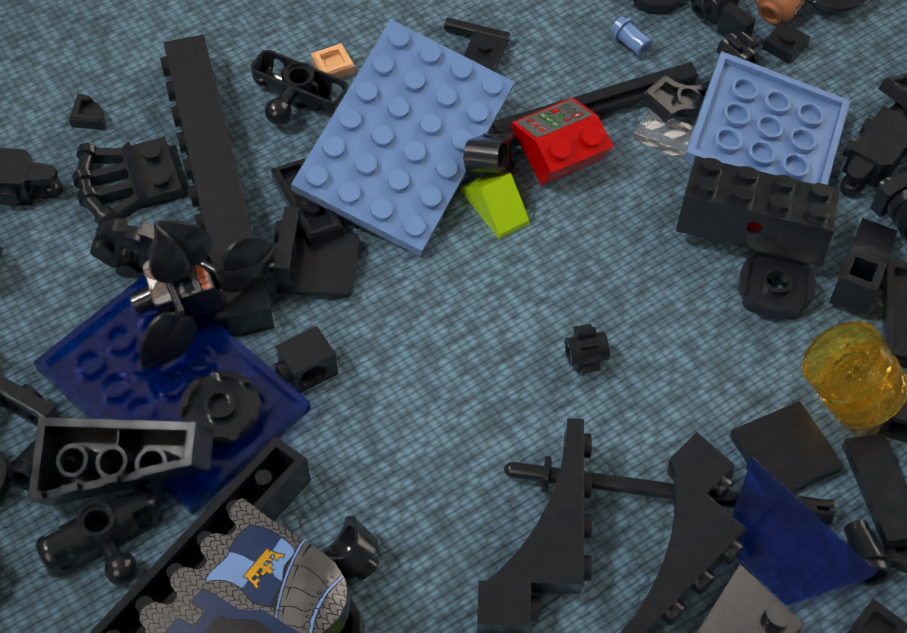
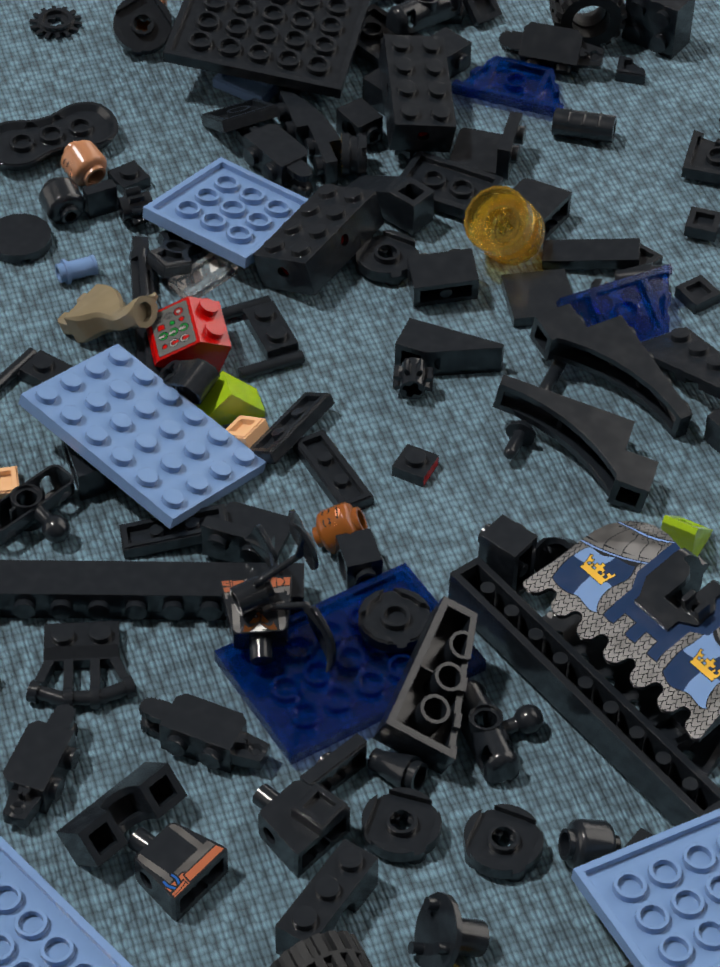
camera: 75 degrees left, 10 degrees down
(52, 287) = (203, 732): none -> black hinge
(122, 245) = (192, 655): black plate -> none
(325, 491) = (509, 551): none -> black brick
(344, 331) = (335, 521): none -> dark orange head
(433, 314) = (332, 471): none -> black tile
(459, 223) = (248, 429): none -> light nougat tile
(468, 384) = (415, 465): none -> black plate
(478, 259) = (292, 426): none -> black tile
(566, 70) = (105, 311): none -> dark tan hips
(611, 210) = (271, 335): none -> black plate
(641, 367) = (448, 350): none -> black slope
(758, 339) = (442, 277): none -> black brick

